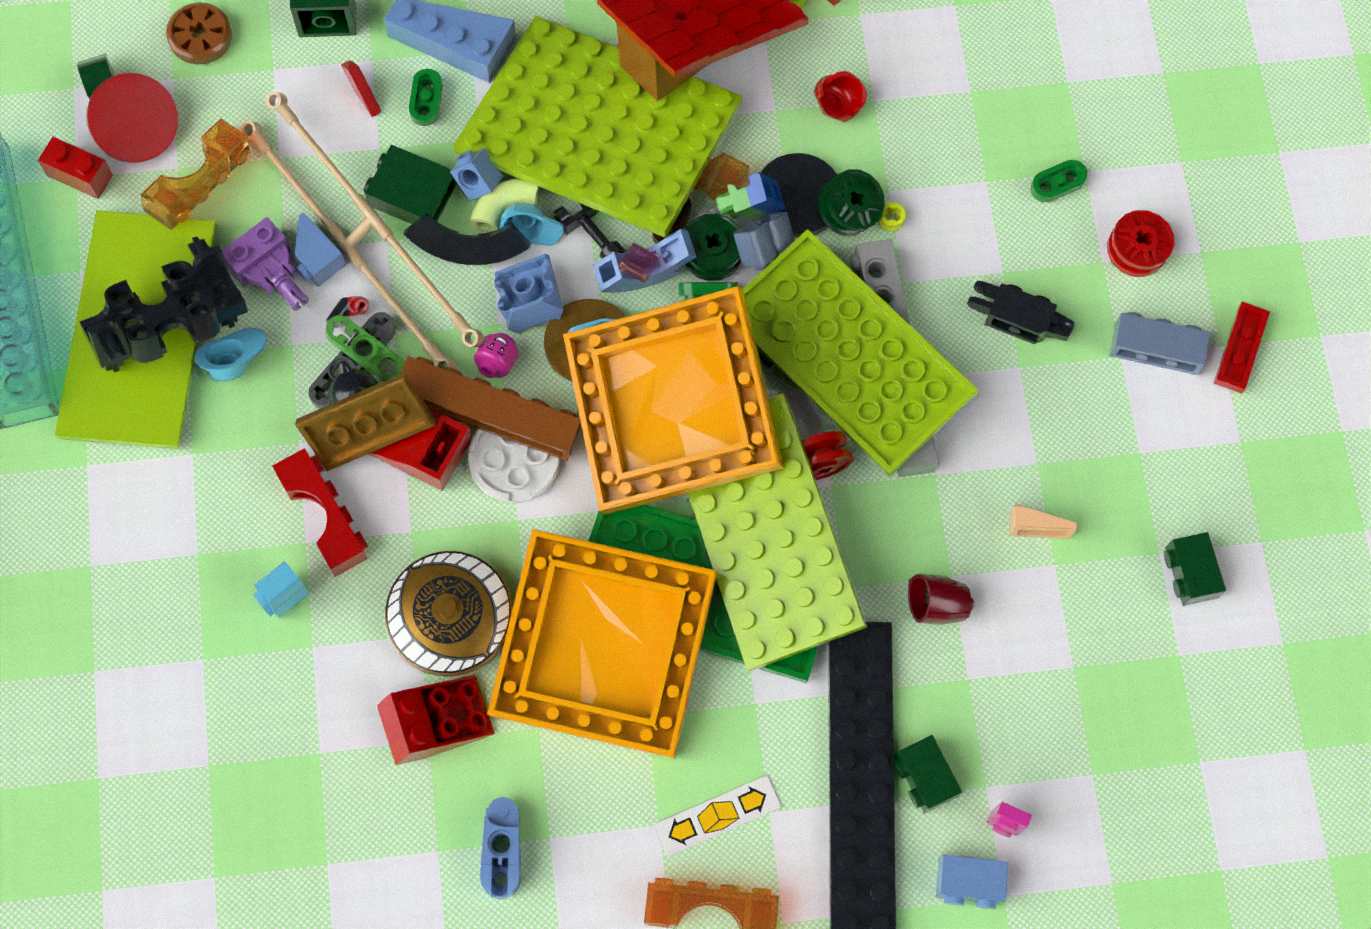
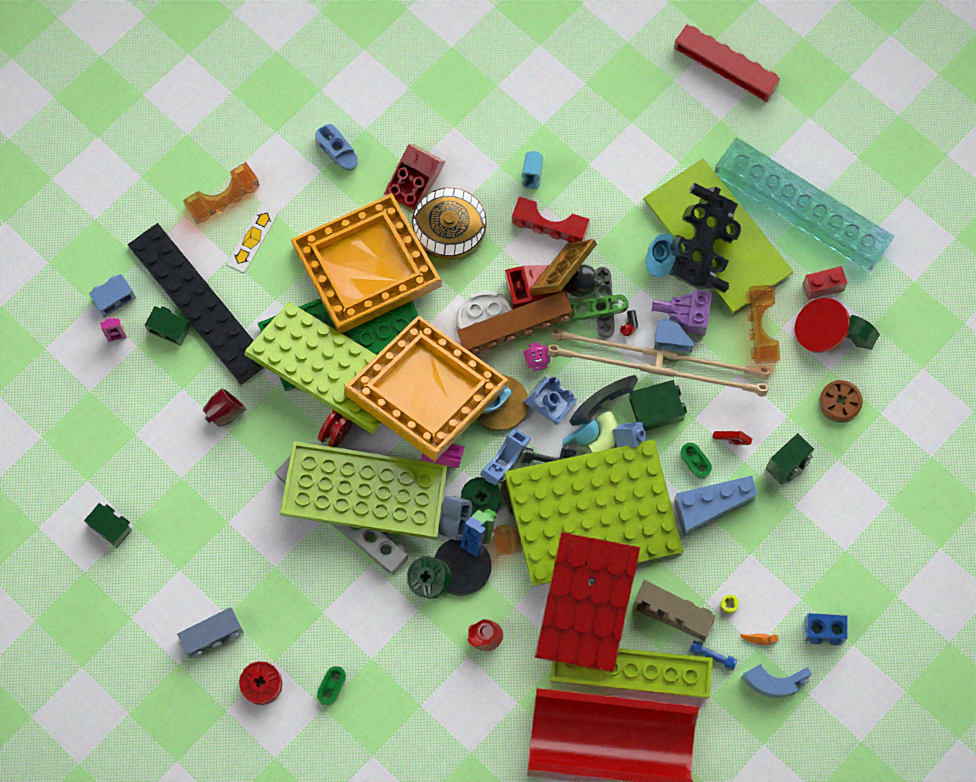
camera: 145 degrees right, 0 degrees up
(639, 262) = (505, 450): clear pink tile -> none
(697, 289) = (463, 474): green plate -> none
(892, 225) = (408, 598): neon yellow bush -> none
(1020, 313) = (294, 591): black hinge -> none
(1033, 523) = (204, 485): light nougat slope -> none
(1241, 347) = (165, 667): red plate -> none

